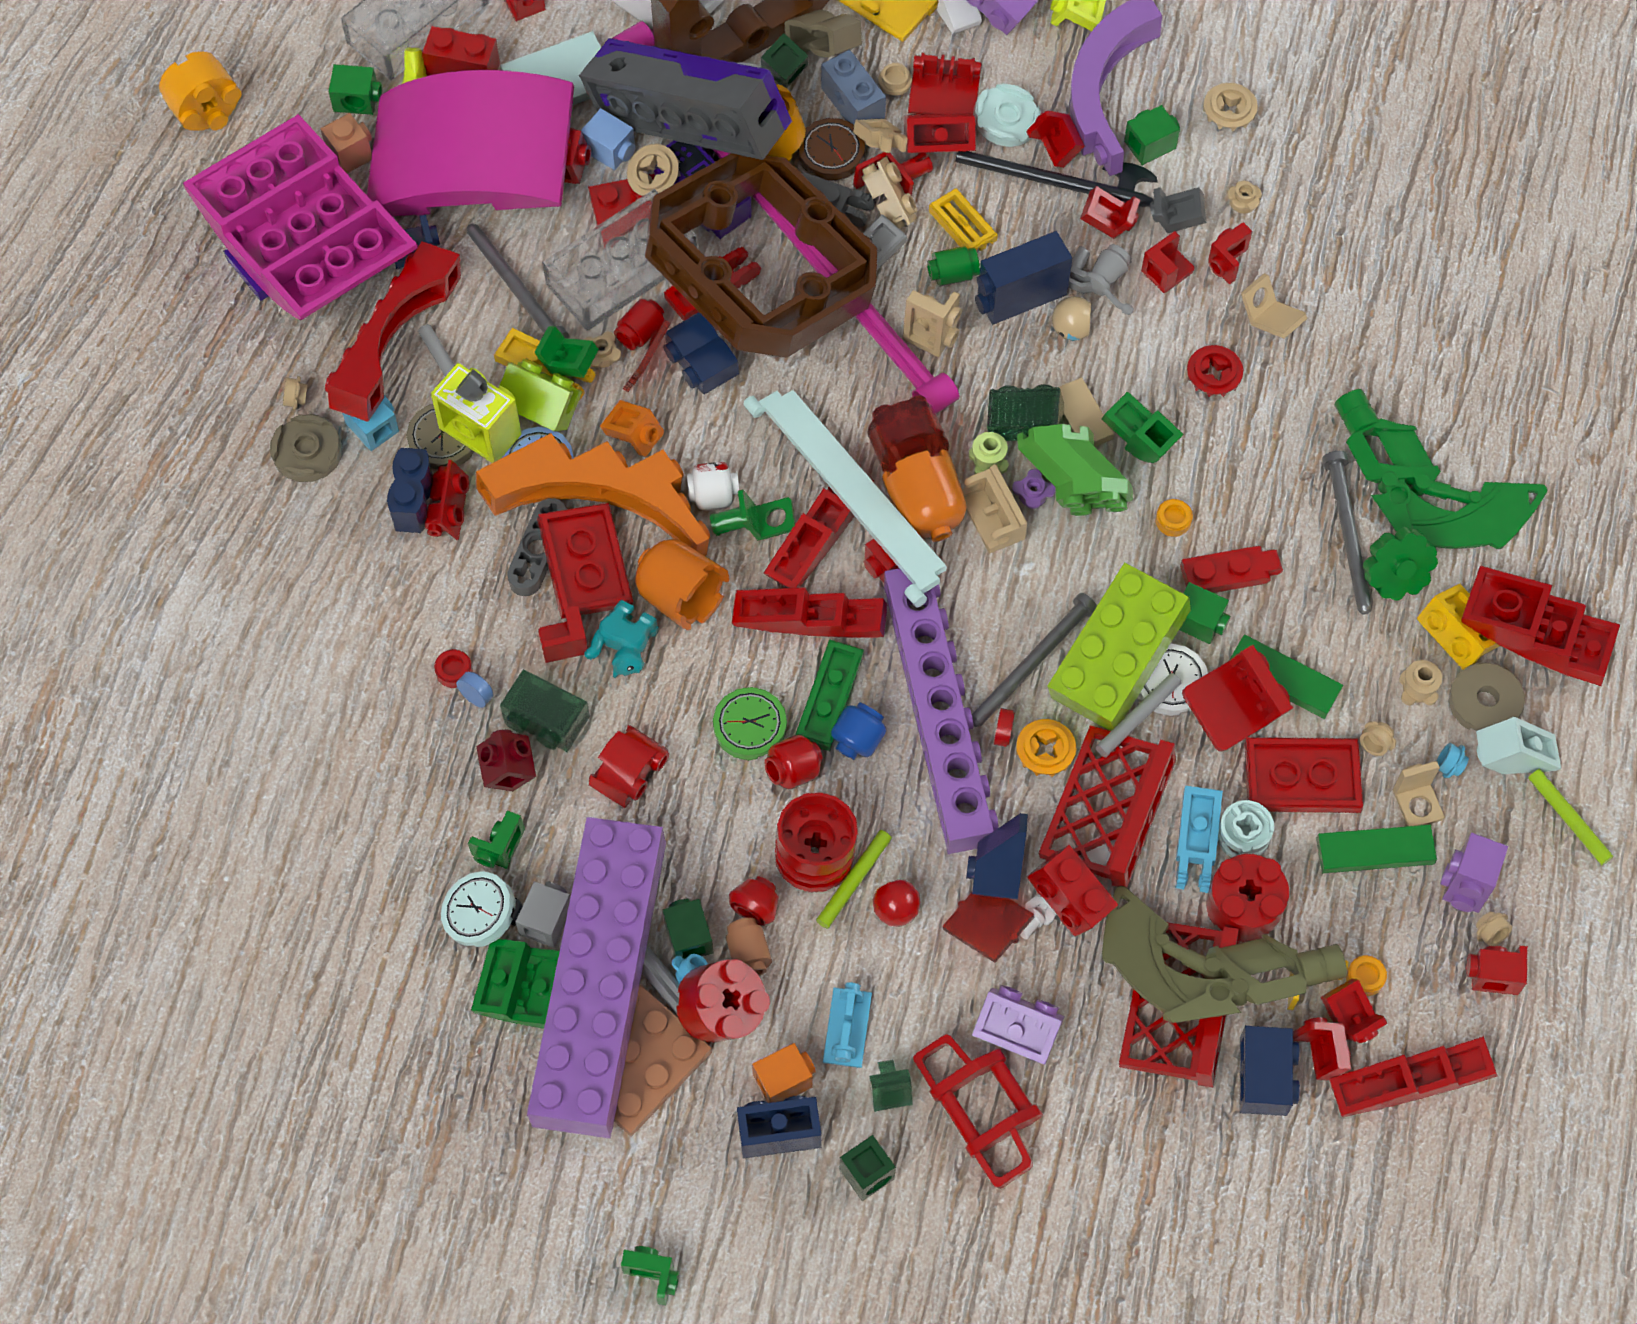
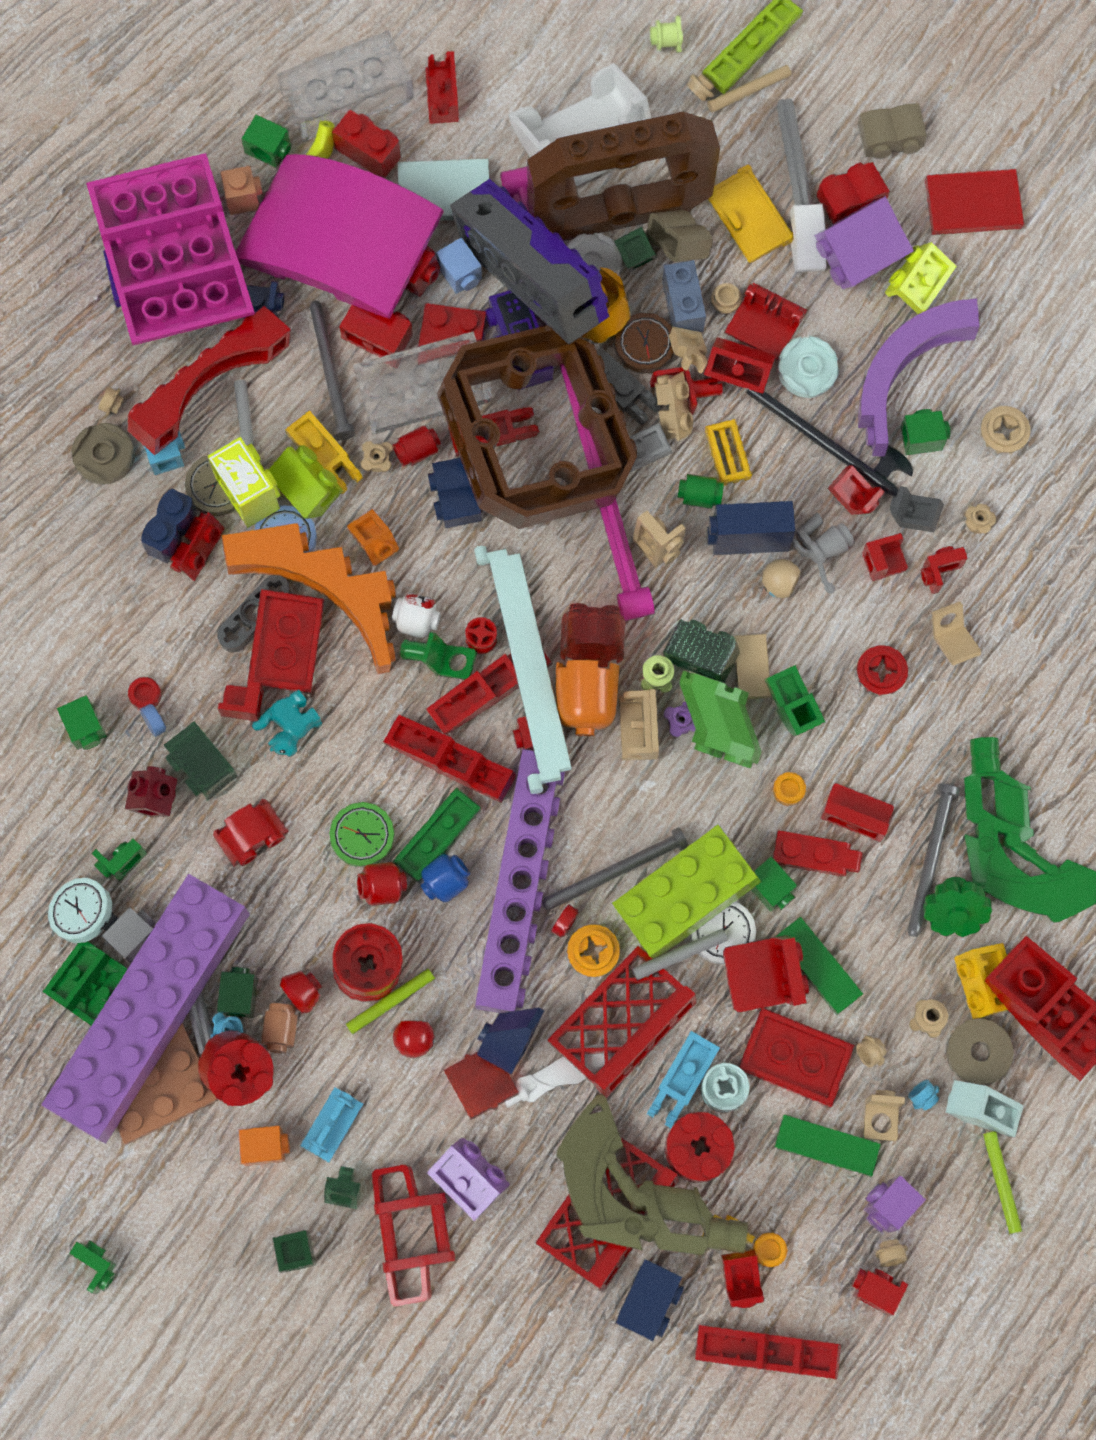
camera: 20 degrees right, 10 degrees up
(200, 92) = (135, 100): light orange brick -> none
(399, 719) = (82, 723): none -> green brick
(472, 386) = (240, 464): dark grey hinge -> none
(547, 228) = (375, 332): none -> red brick
(564, 354) = (340, 454): green bracket -> none
(645, 160) = (480, 300): tan gear -> none
(646, 356) = (408, 479): clear red piece -> none
(680, 582) = (352, 692): orange cylinder -> none
(779, 1126) = (239, 1189): dark blue brick -> none
(794, 475) = (481, 628): none -> red wheel
(1058, 136) = (842, 404): red bracket -> none
(1072, 890) = (556, 1087): red brick -> none
(1254, 515) = (857, 812): none -> red panel
(1327, 1045) = (709, 1300): red bracket -> none

